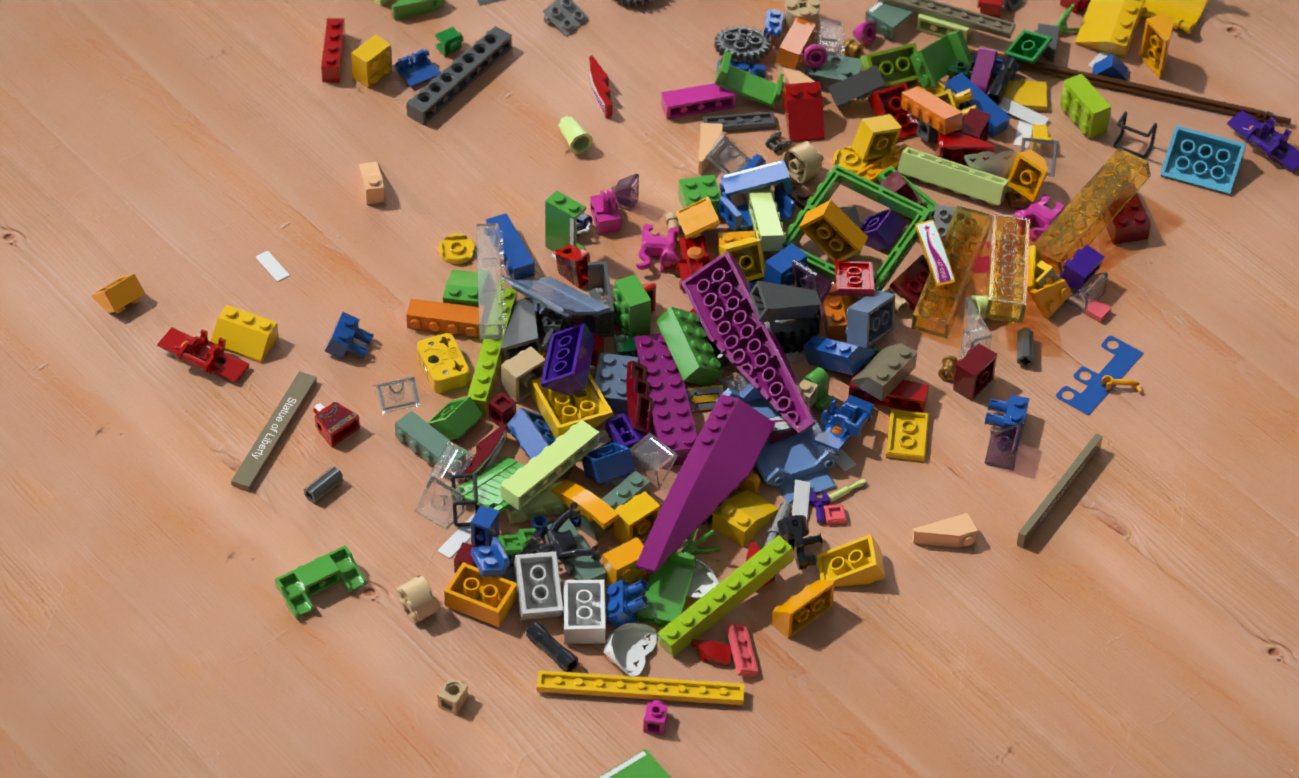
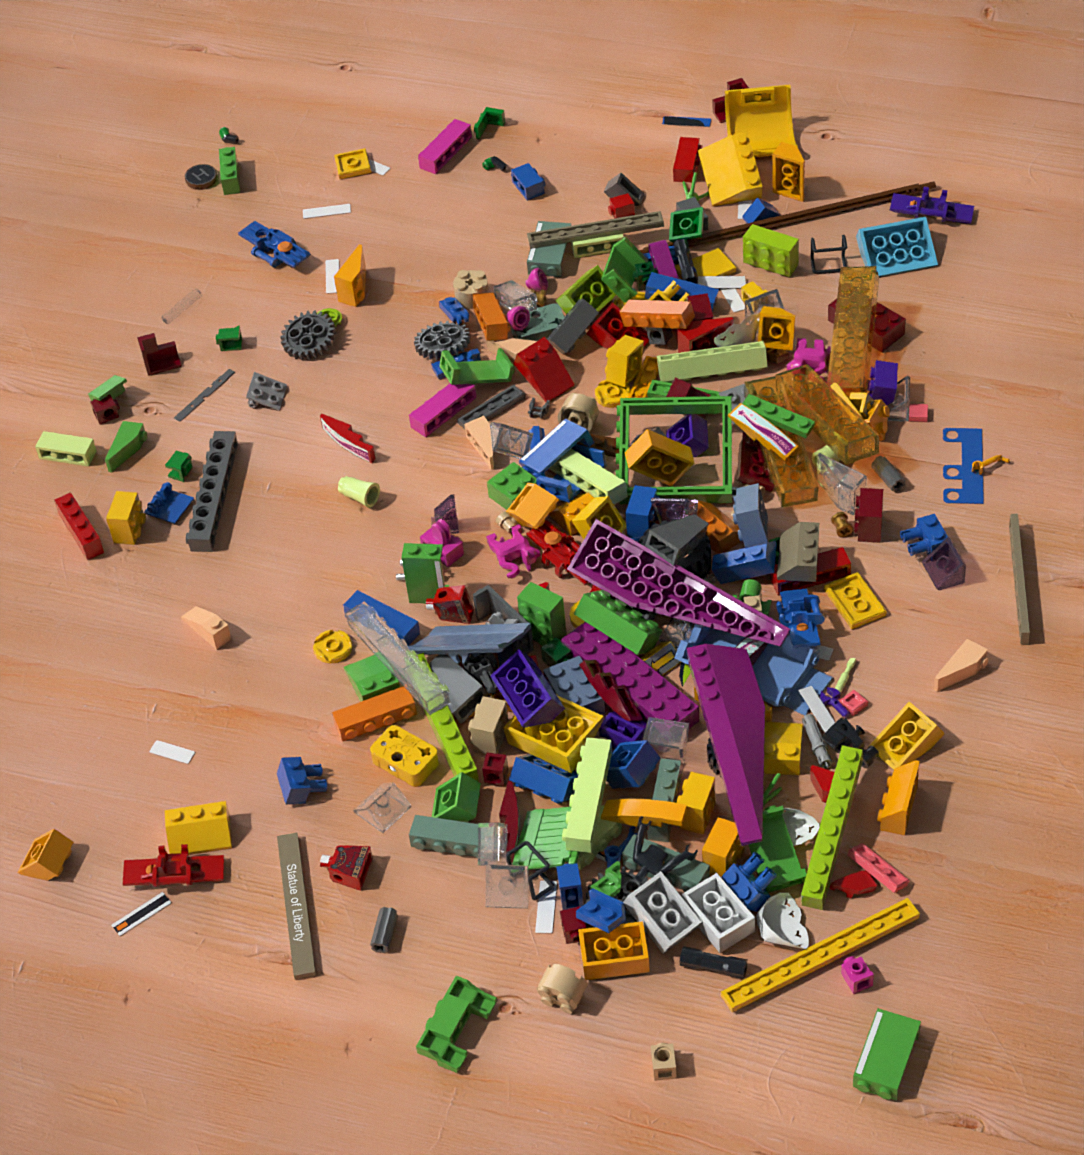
camera: 25 degrees left, 0 degrees up
(157, 375) = (141, 913): none -> sticker
(854, 278) = (712, 488): red tile -> none
(961, 248) = (780, 416): none -> bright green plate

